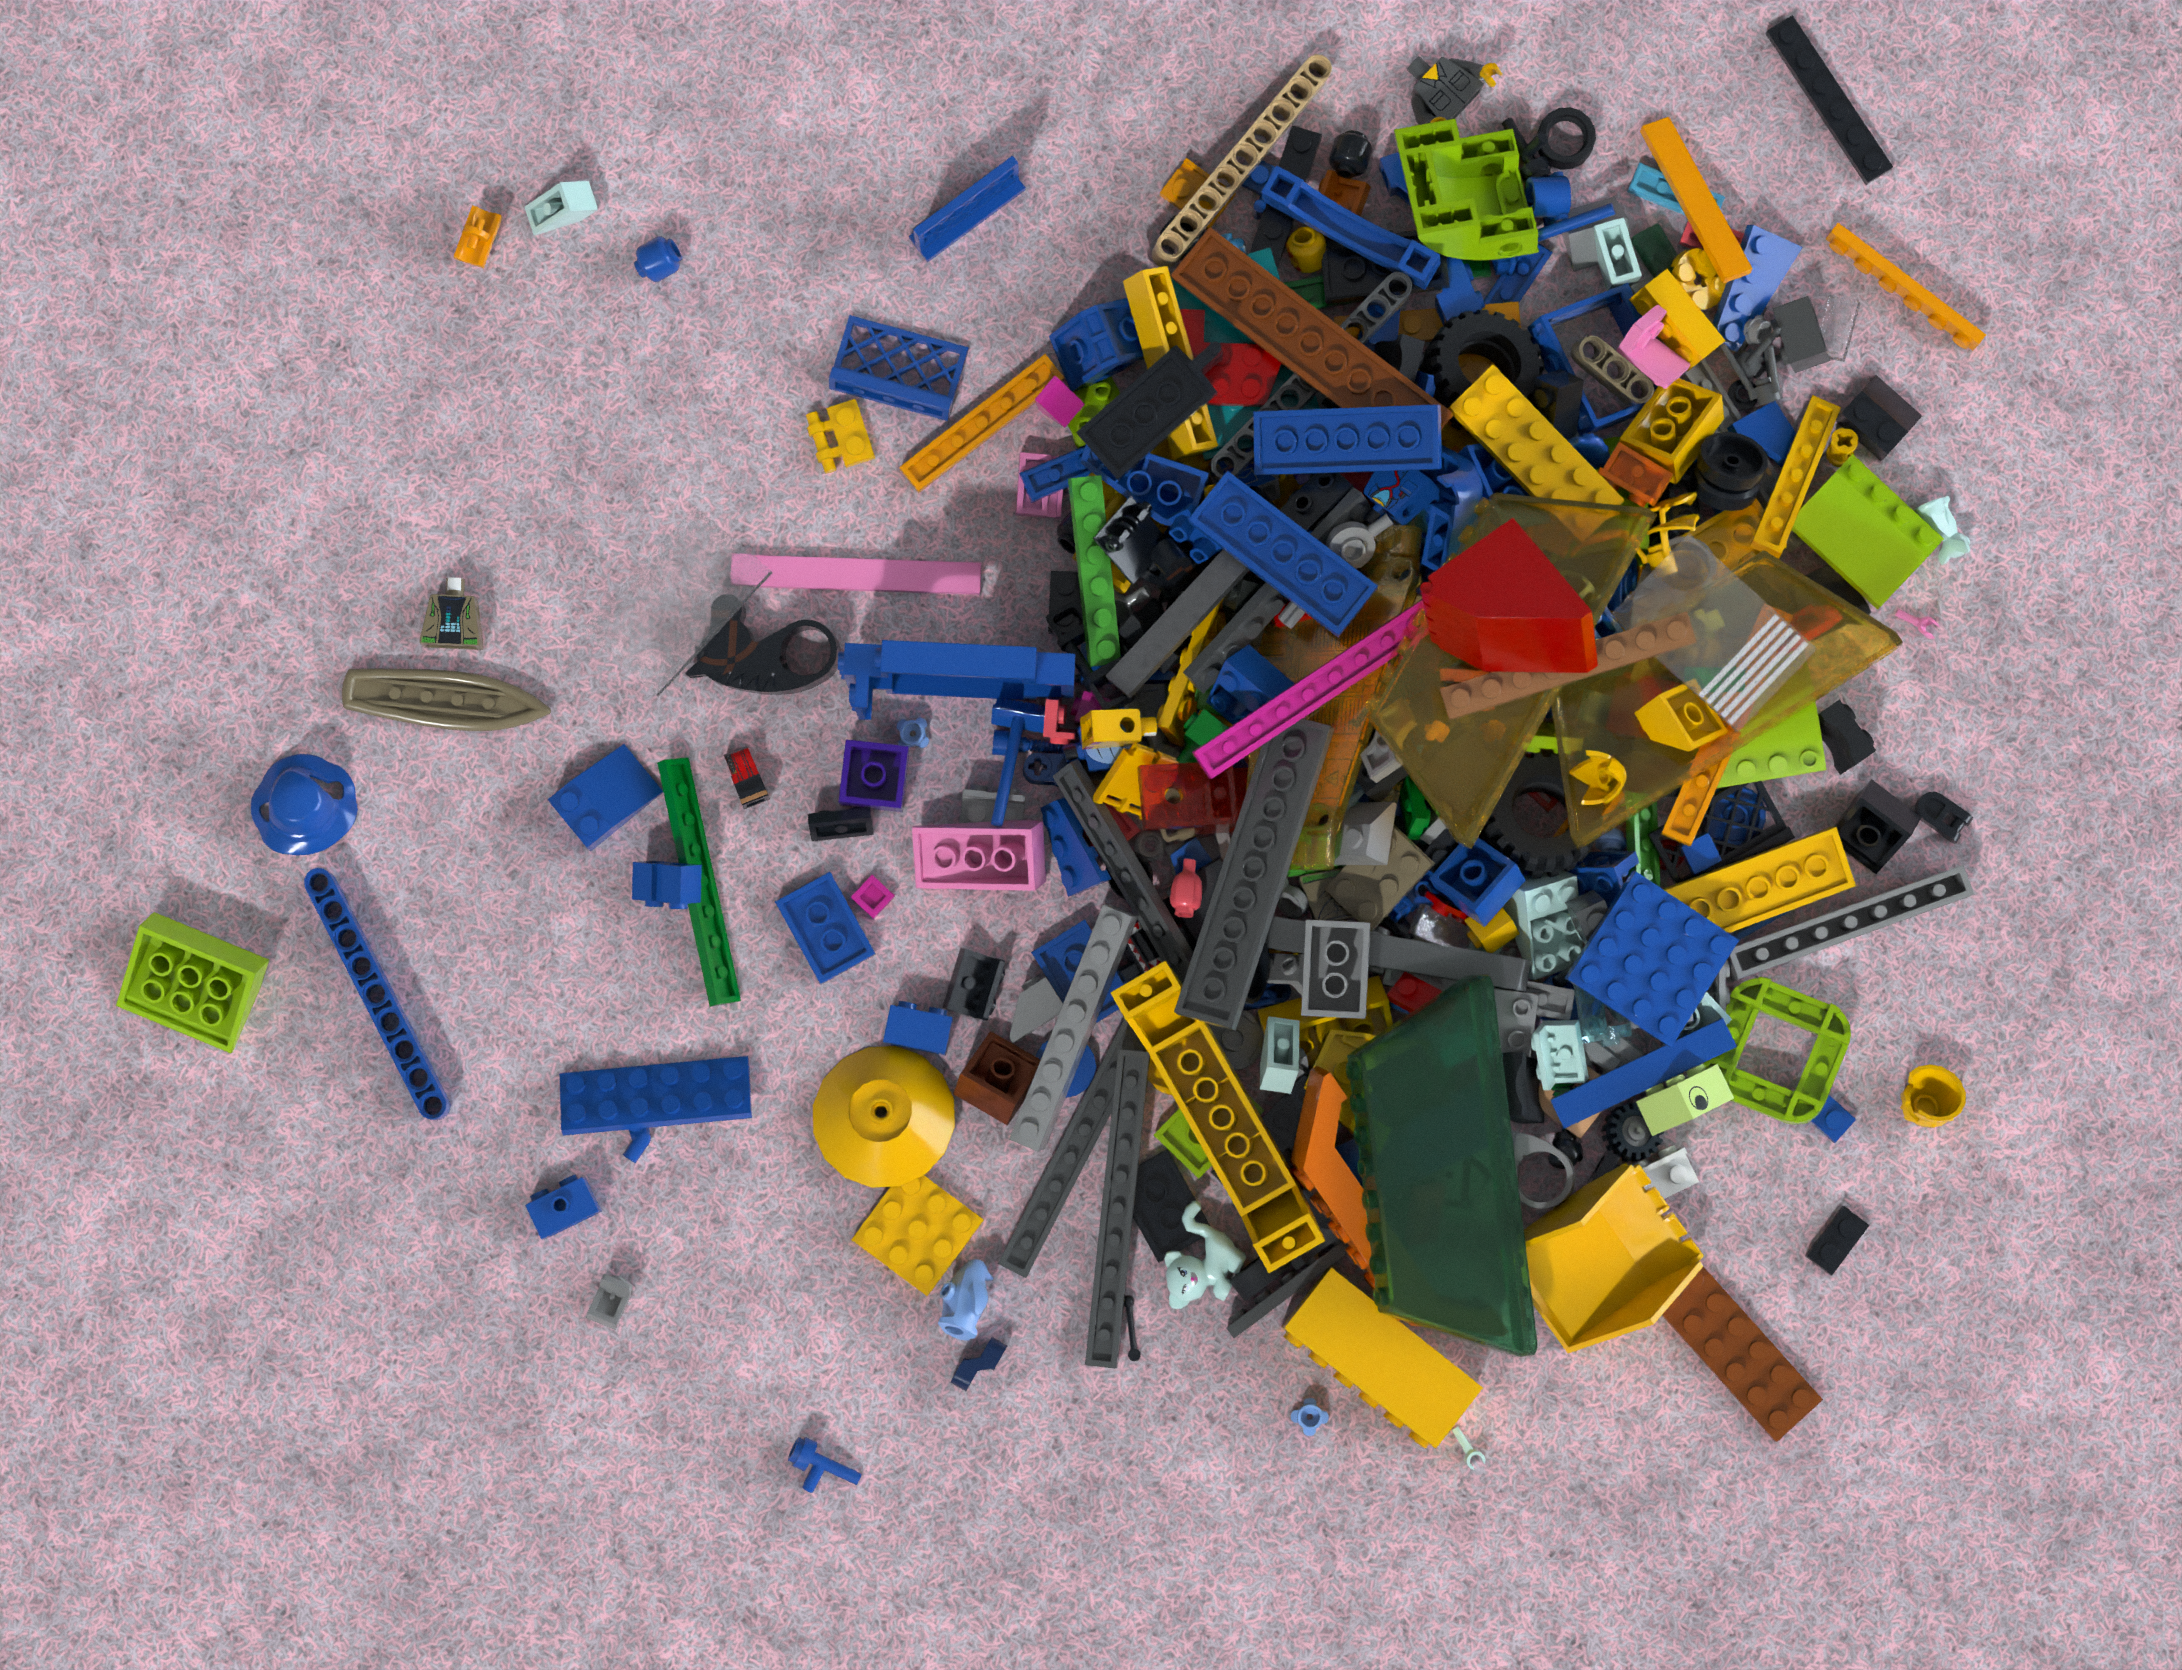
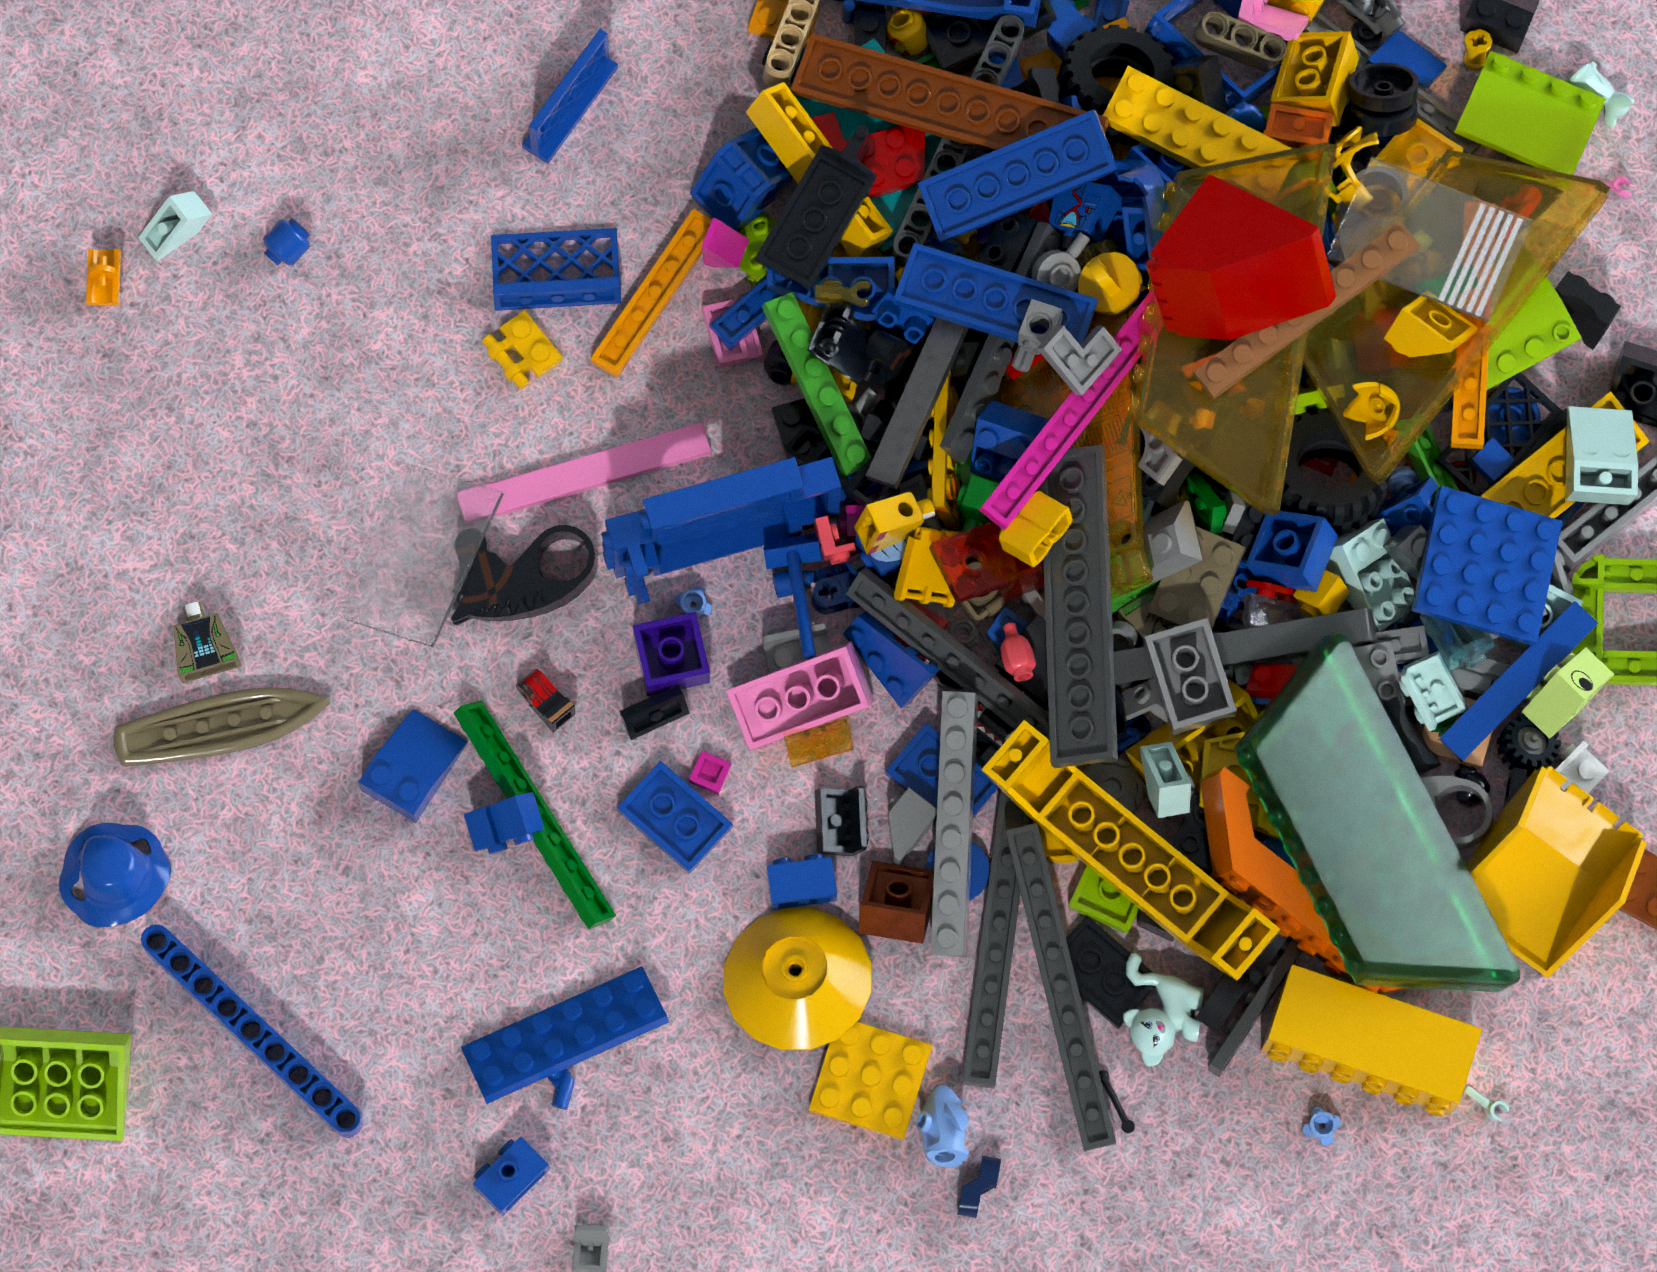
camera: 20 degrees left, 10 degrees down
(980, 904) = (818, 743): none -> clear yellow plate
(1138, 488) = (832, 292): none -> clear yellow plate
(1240, 786) = (1035, 529): none -> yellow brick
(1311, 584) = (1038, 315): none -> light grey brick
(1335, 646) = (1079, 363): none -> light grey plate
(1398, 571) = (1112, 280): none -> yellow tile
(1795, 476) = (1446, 83): yellow plate -> none
(1801, 887) = (1601, 456): none -> light aqua slope

